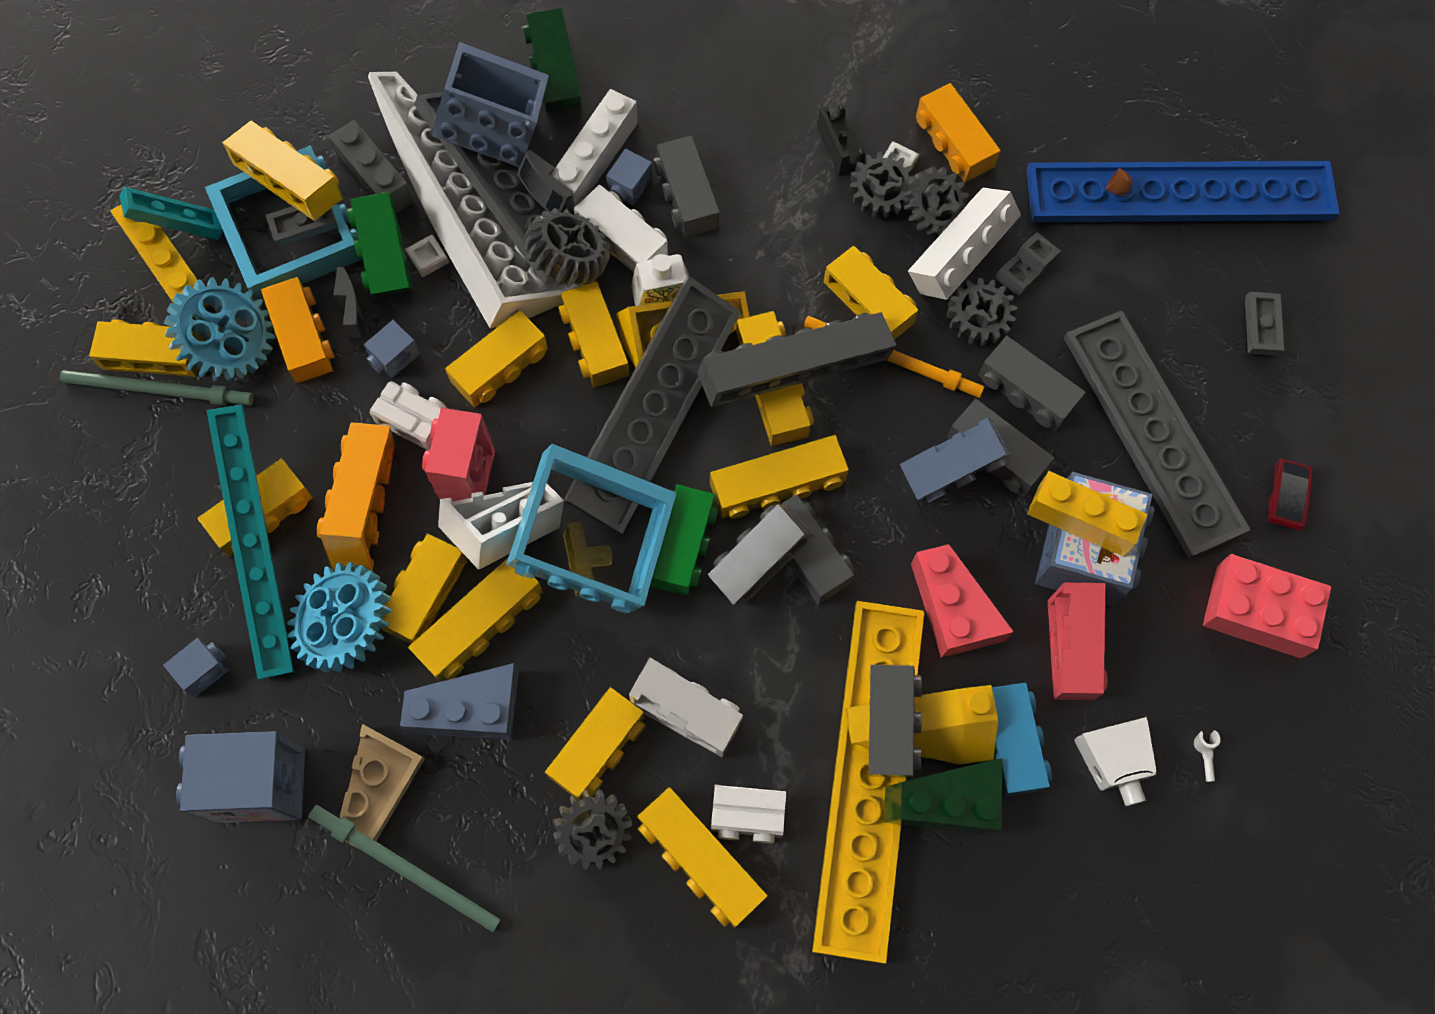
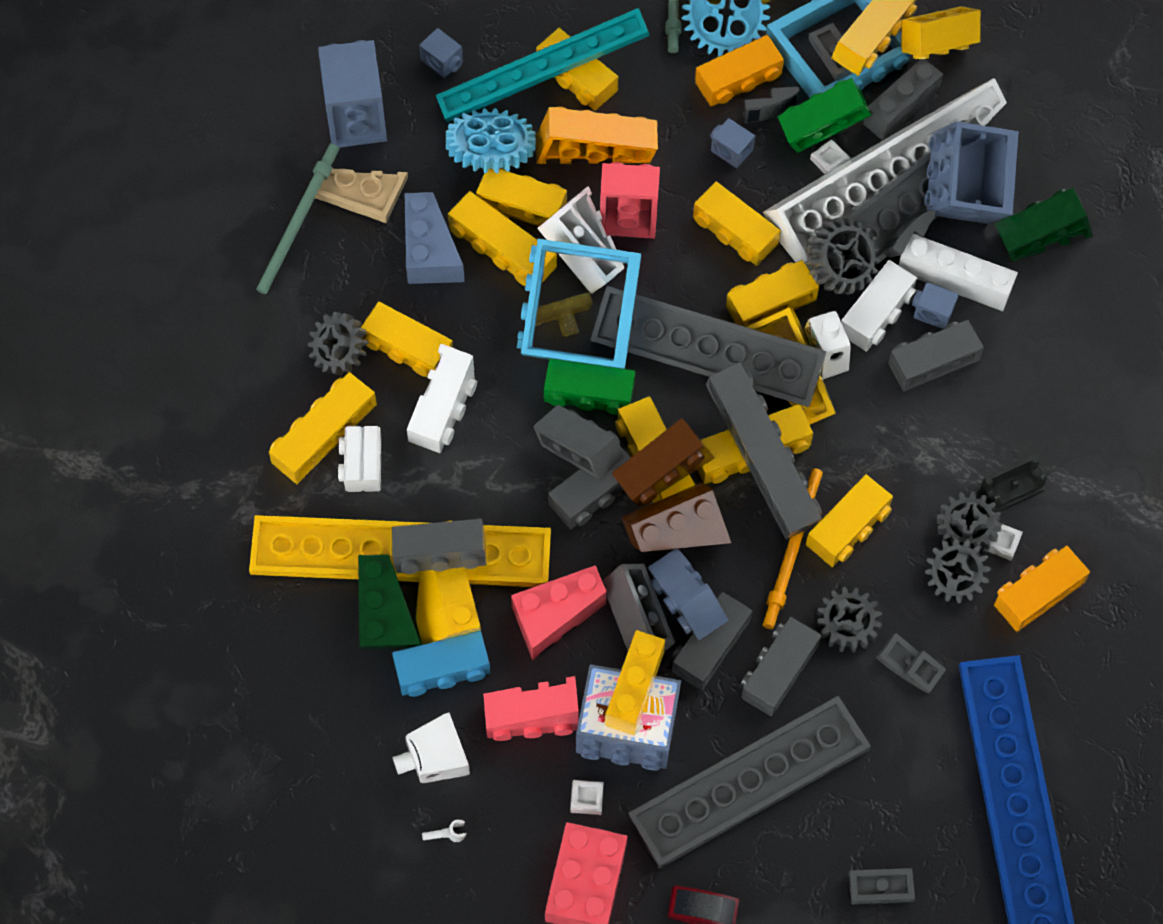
camera: 85 degrees right, 5 degrees down
(299, 112) = (940, 32): none -> yellow brick
(407, 413) = (676, 161): white brick -> none
(810, 461) = (662, 463): none -> reddish brown wedge
(870, 460) = (678, 521): none -> wedge
(964, 243) = (916, 597): white brick -> none
(968, 516) = (636, 604): none -> dark grey brick
(1120, 183) = (1007, 736): dark orange hinge -> none
(1166, 598) = (587, 797): none -> white tile

